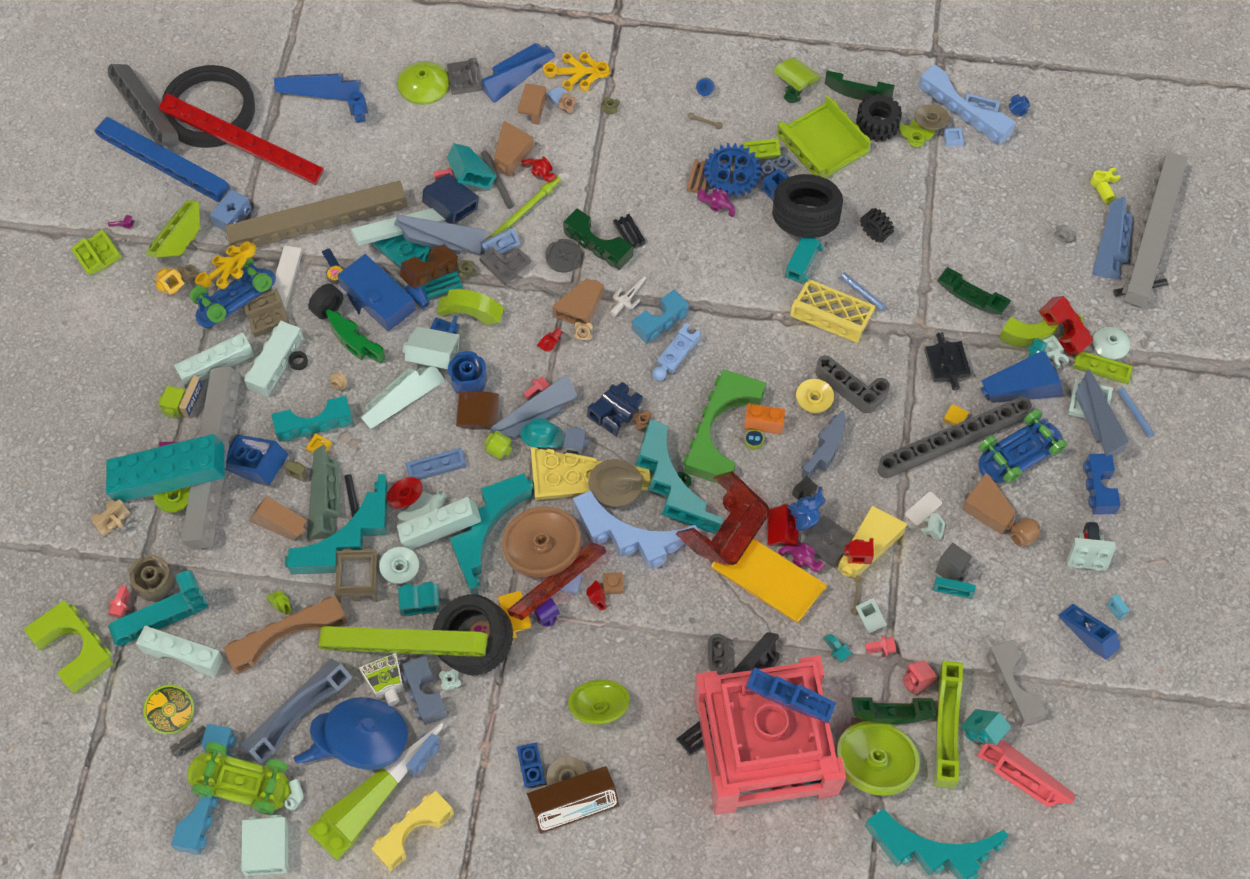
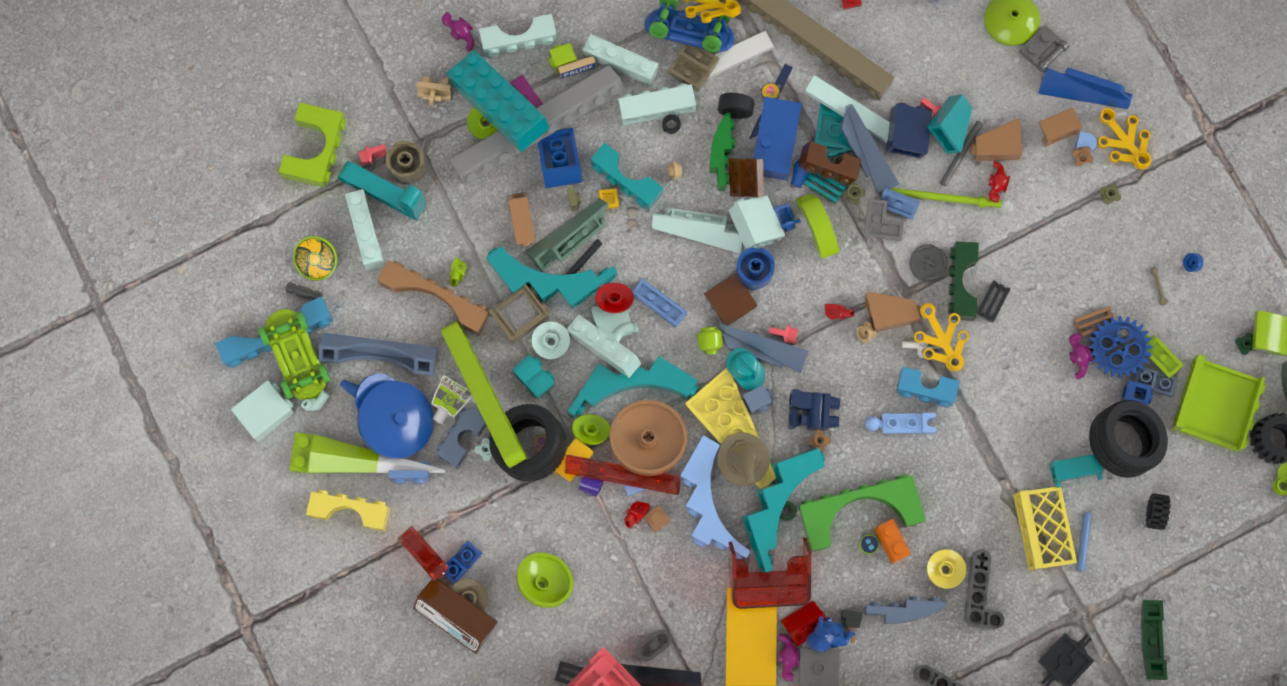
camera: 55 degrees right, 15 degrees up
(78, 463) = (460, 29): none -> magenta piece
(113, 442) = (496, 41): none -> light aqua arch
(390, 330) = (746, 177): none -> reddish brown slope
(499, 582) = (591, 429): none -> lime dish
(502, 789) = (423, 553): none -> clear red arch
(631, 280) = (943, 340): none -> yellow plant

